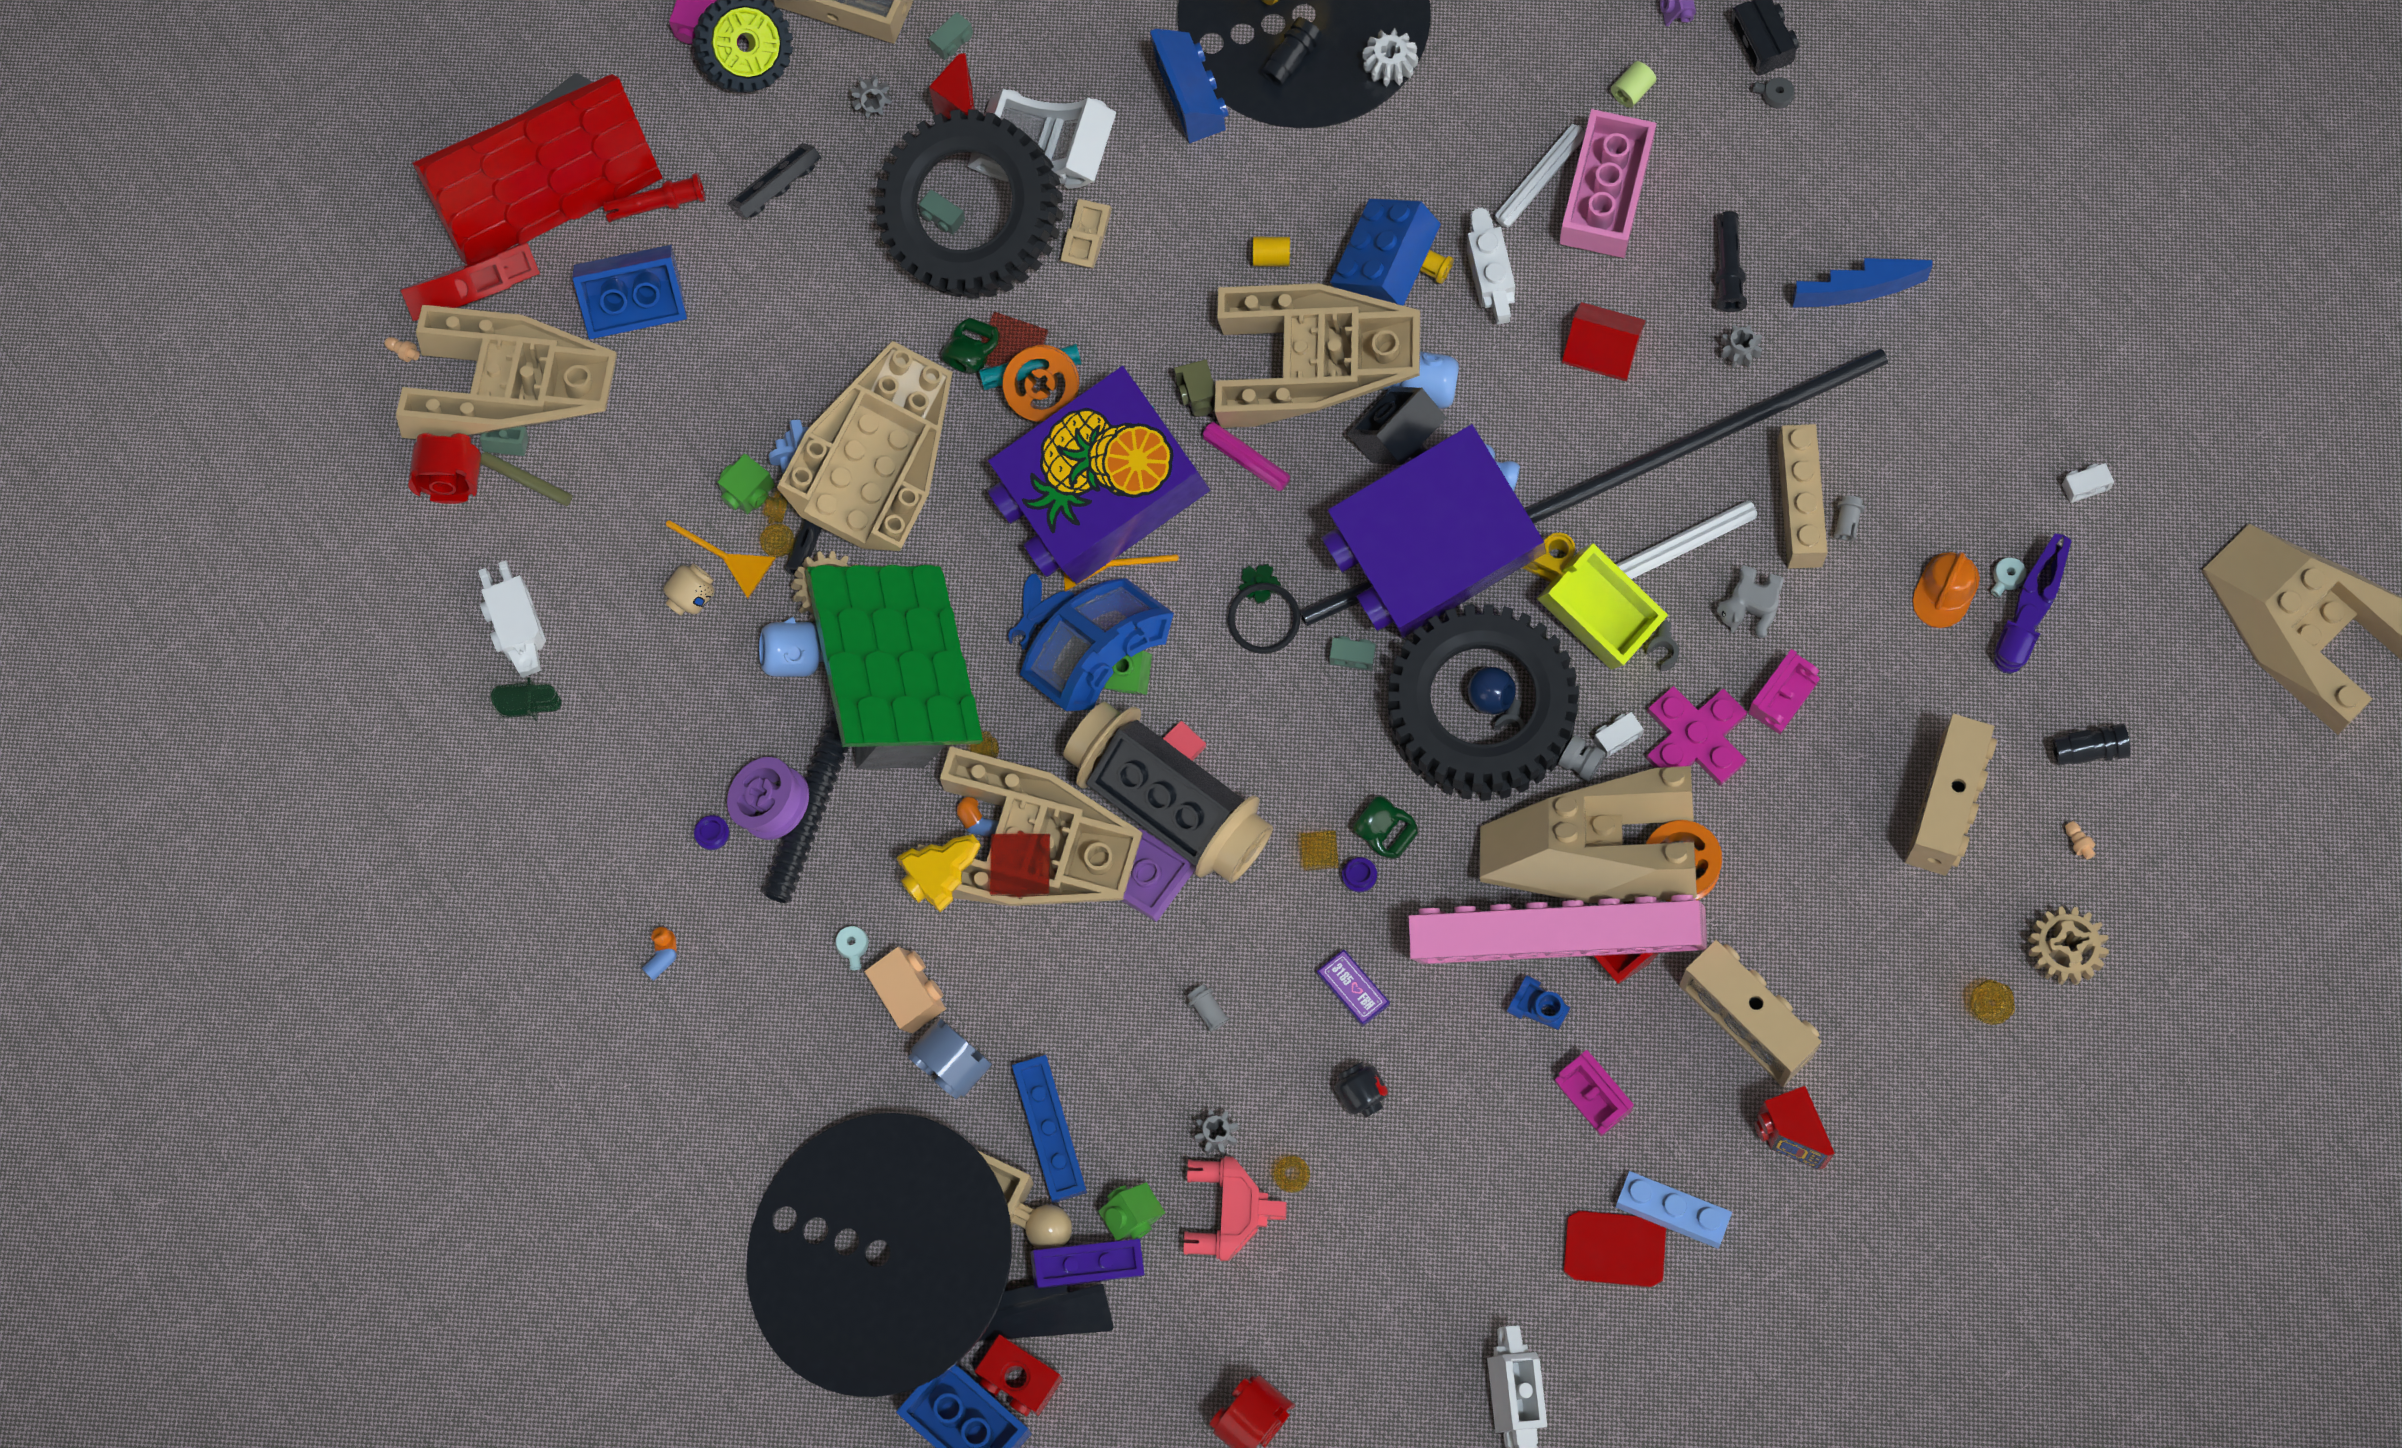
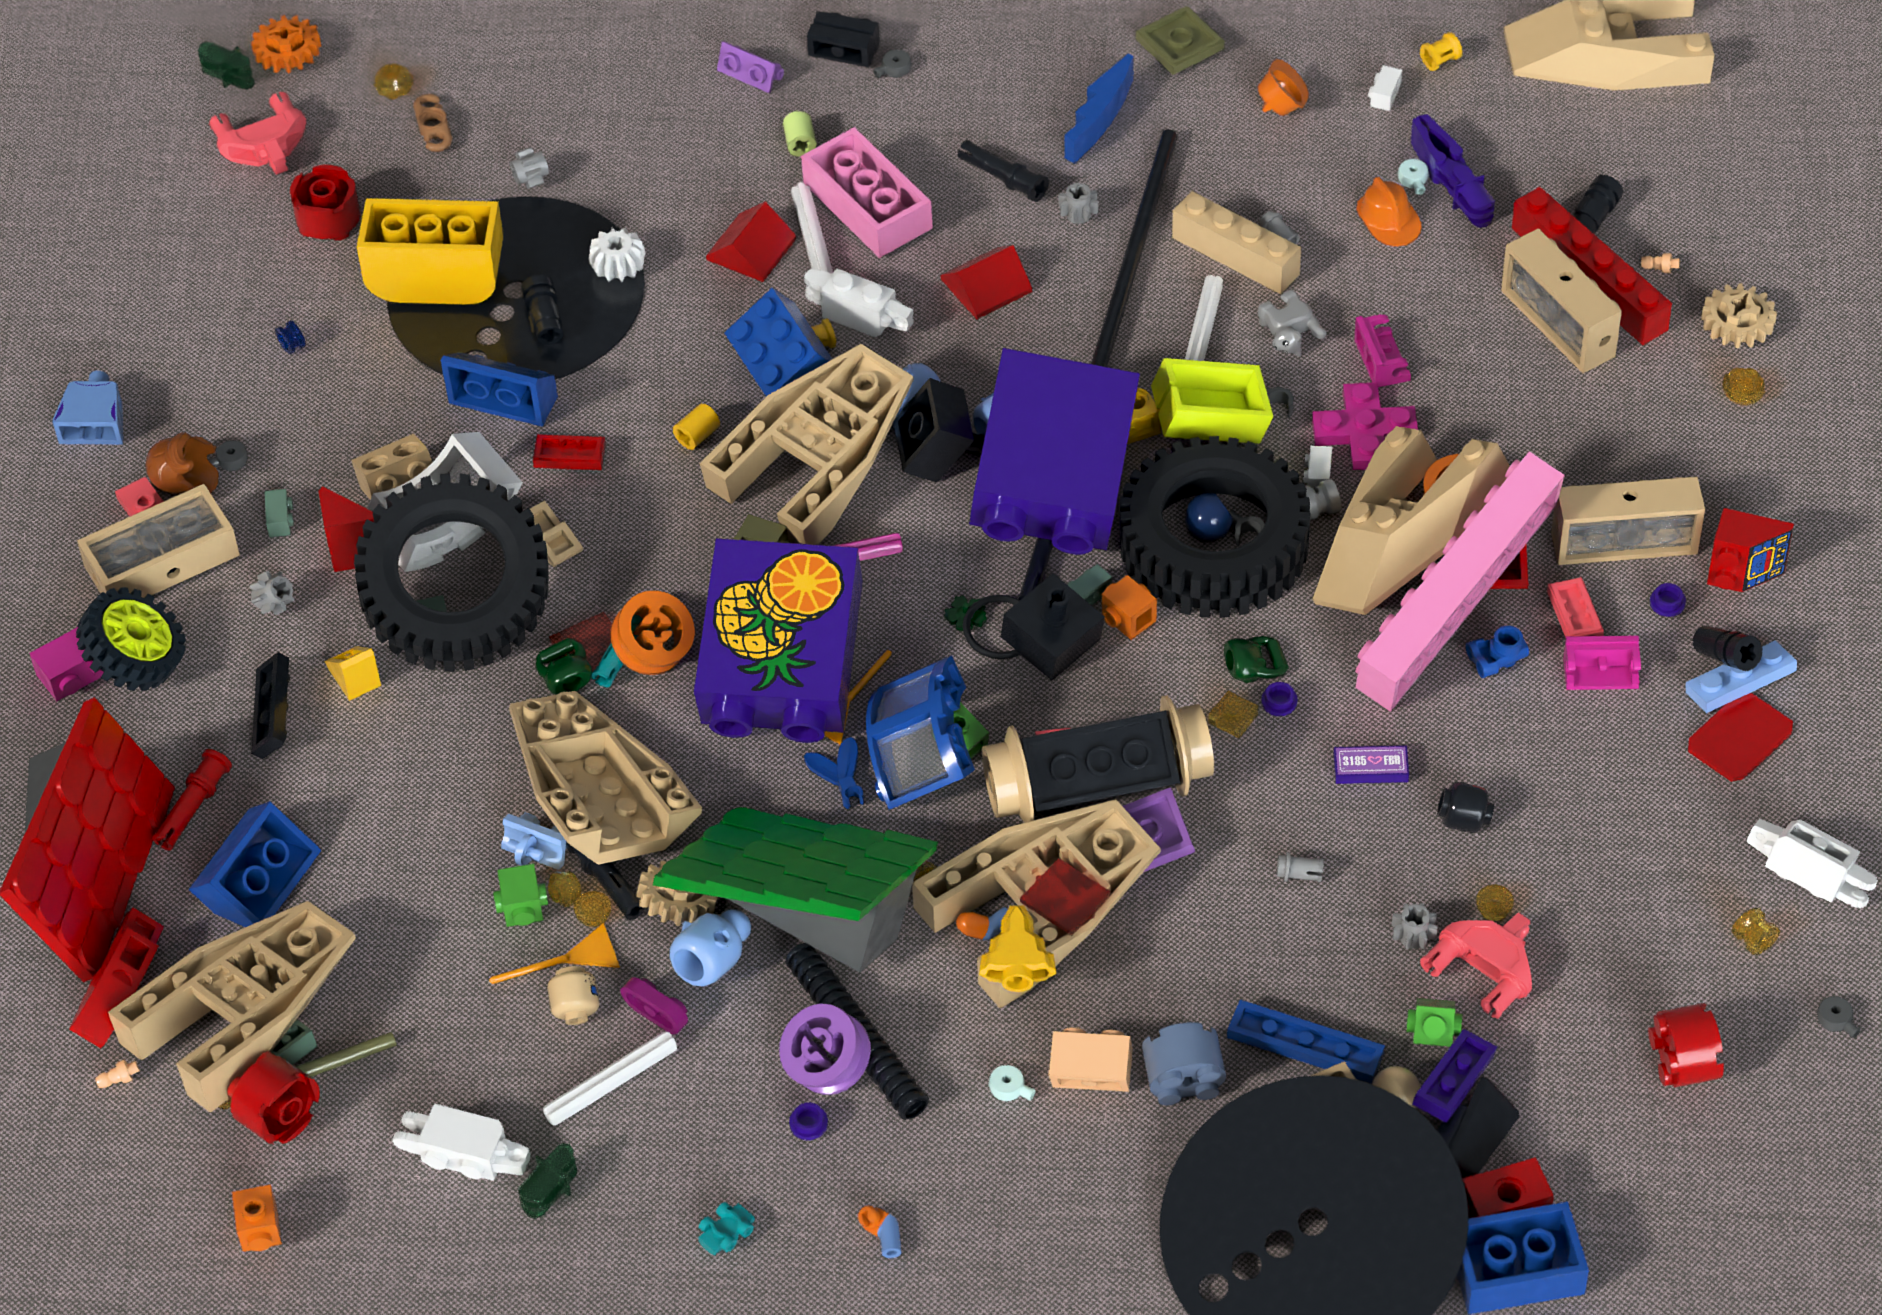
camera: 55 degrees left, 20 degrees down
(348, 538) = (256, 1218): none -> orange brick
(585, 849) = (725, 1232): none -> teal piece
(645, 669) = (609, 1078): none -> white axle
(725, 637) = (655, 1006): none -> magenta plate
(851, 206) = (355, 671): none -> yellow slope
(1048, 77) = (391, 465): none -> tan brick
(1172, 183) = (569, 452): none -> red plate
(1284, 658) = (1052, 626): none -> black brick
(1355, 697) = (1129, 607): none -> orange brick
(1416, 1393) = (1755, 931): none -> clear yellow wheel
(1492, 143) = (753, 243): none -> red slope
(1633, 1035) = (1574, 608): none -> coral plate
(1682, 1182) = (1731, 648): none -> black axle
(1706, 1099) = (1668, 600): none -> dark purple plate
(1996, 284) = (1180, 40): none -> olive plate
(2010, 405) = (1282, 89): none -> orange piece
(2020, 789) = (1643, 307): none -> red brick
(2167, 496) = (1441, 51): none -> yellow bush

